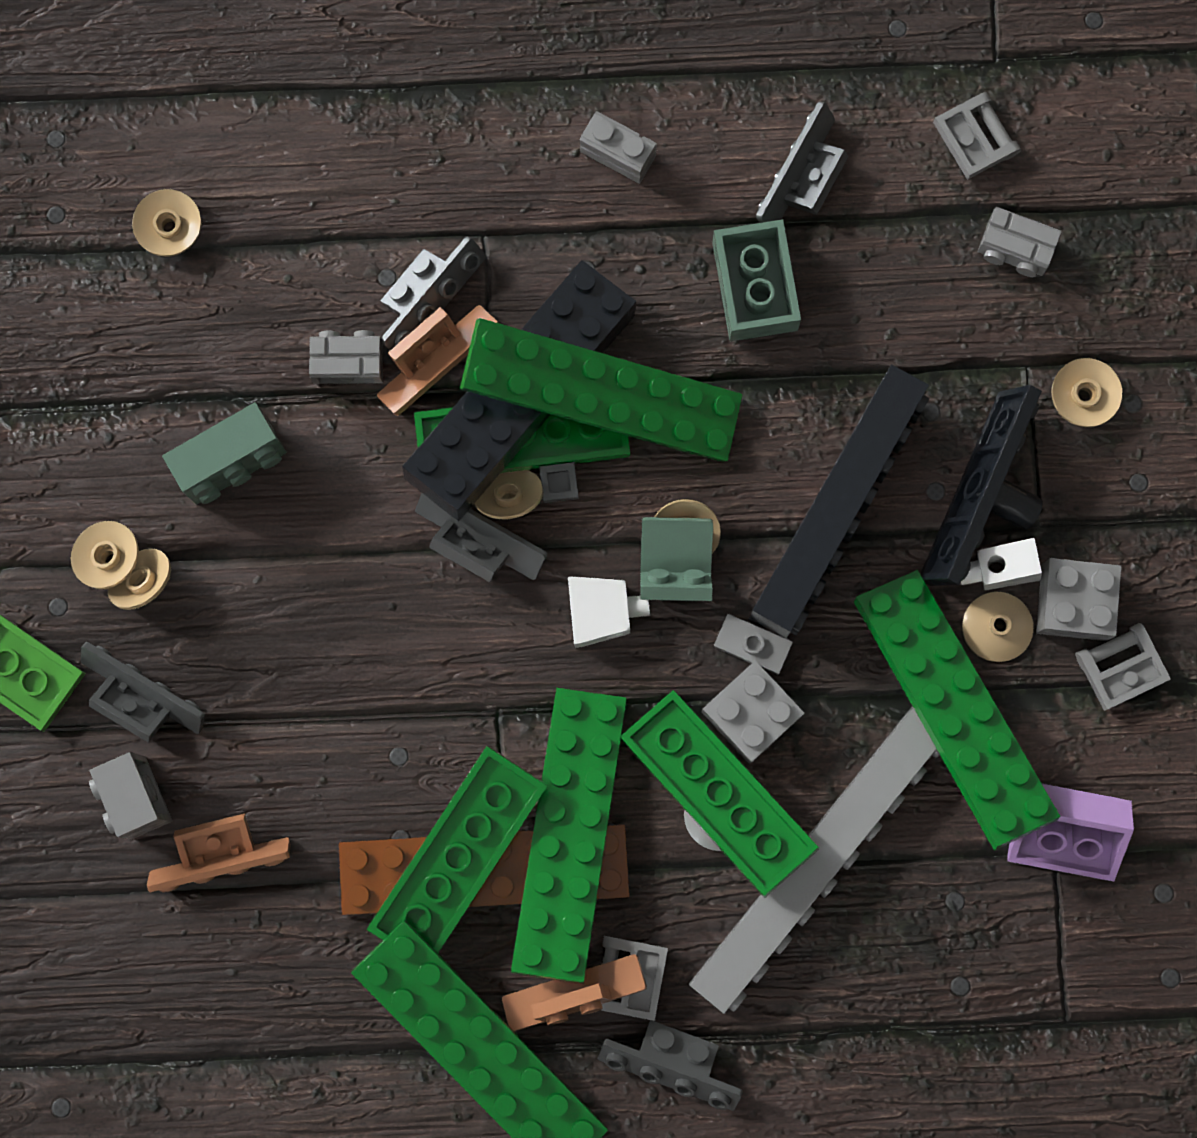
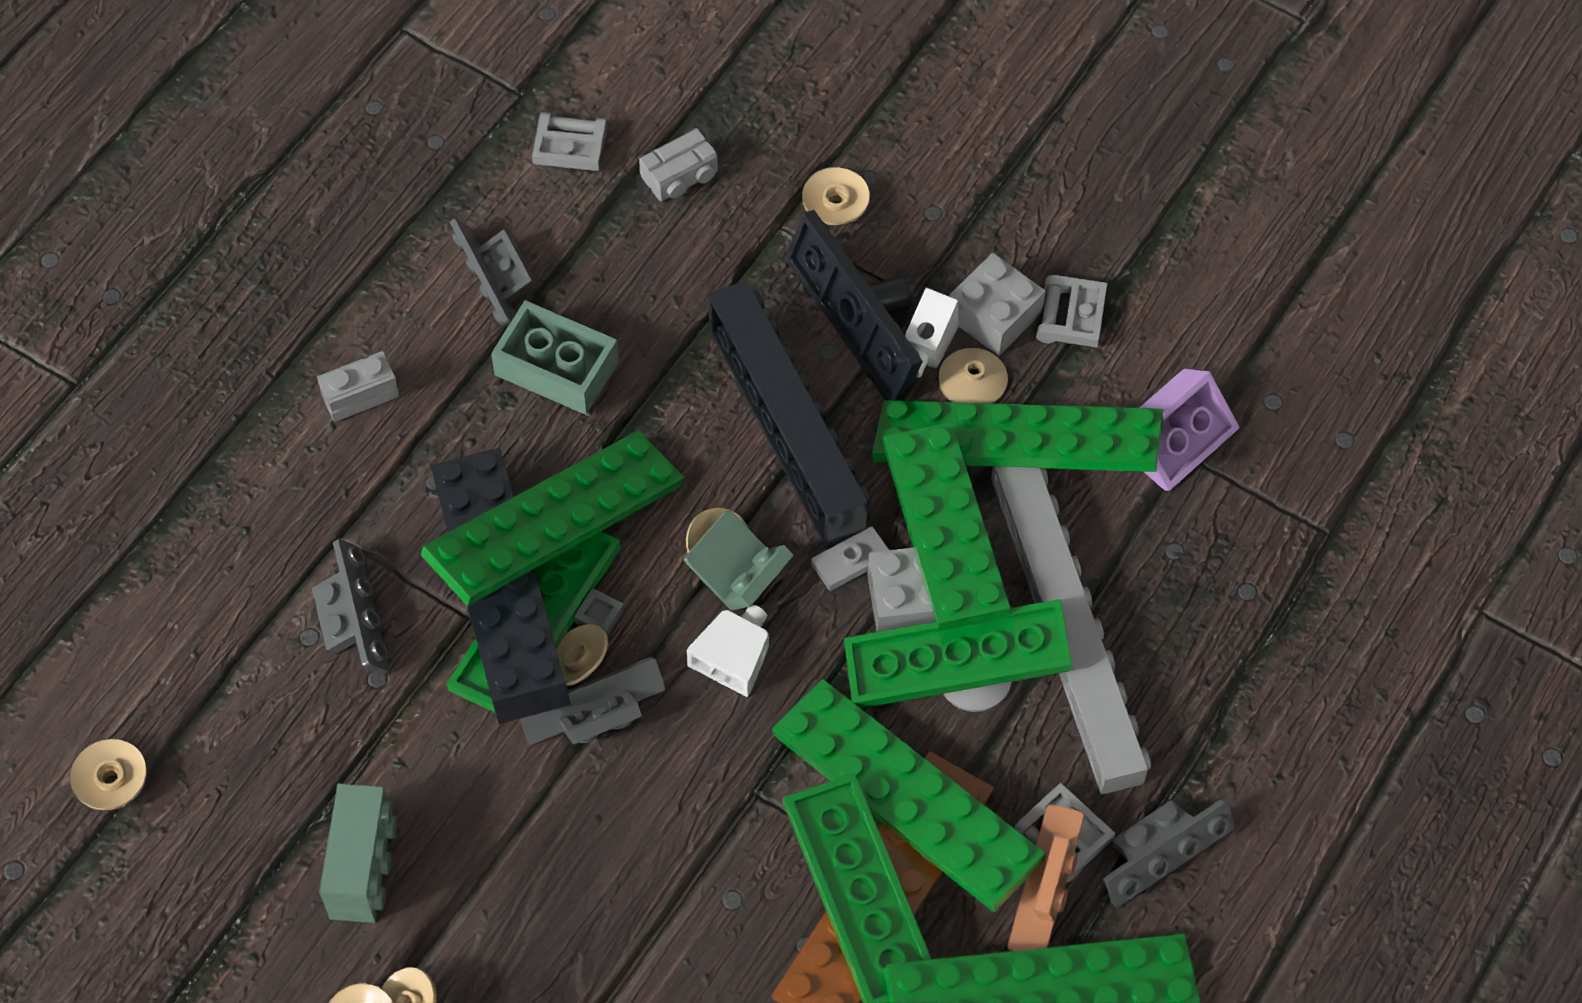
camera: 60 degrees left, 20 degrees down
(346, 358) = (354, 707): light grey brick -> none
(428, 356) = (408, 637): nougat bracket -> none
(820, 706) = (945, 526): none -> green plate

